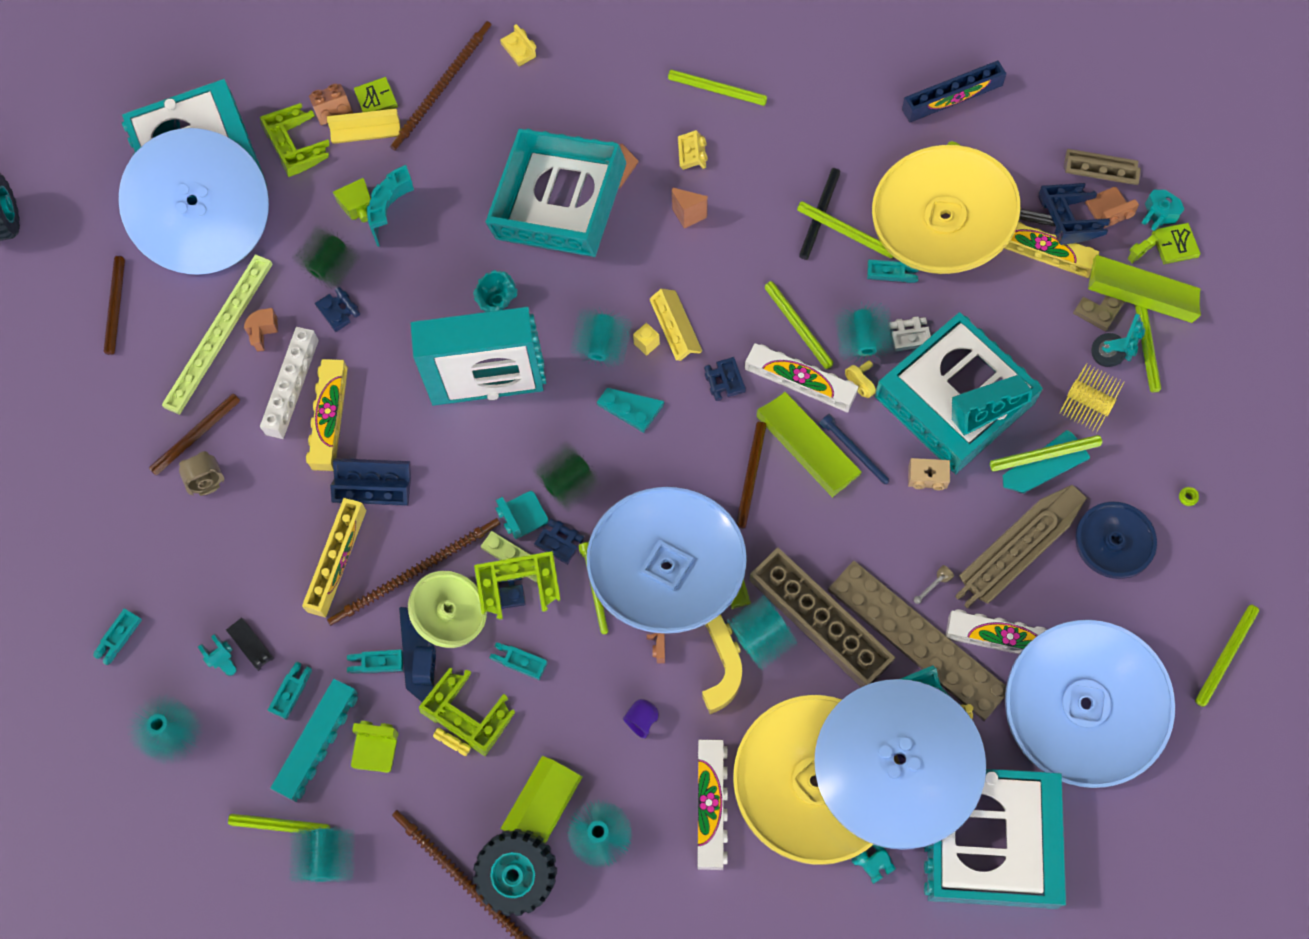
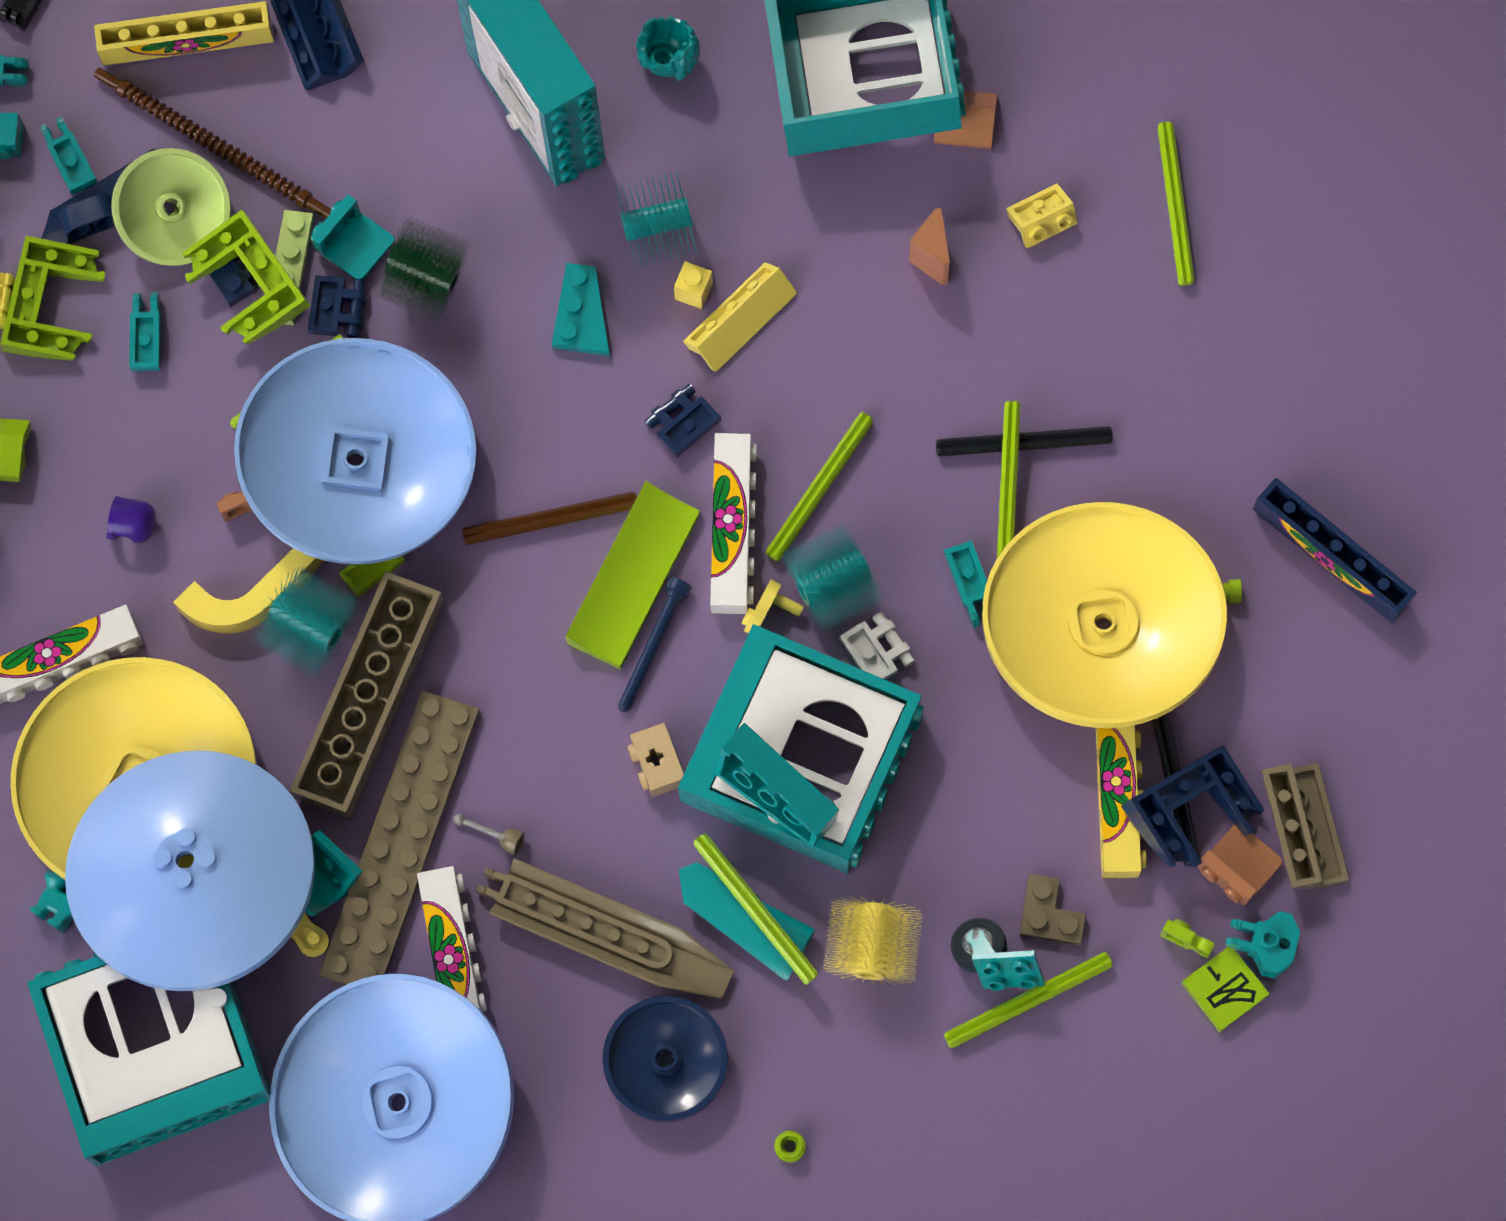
camera: 65 degrees right, 5 degrees up
(1145, 289) = (1110, 962): lime arch -> none

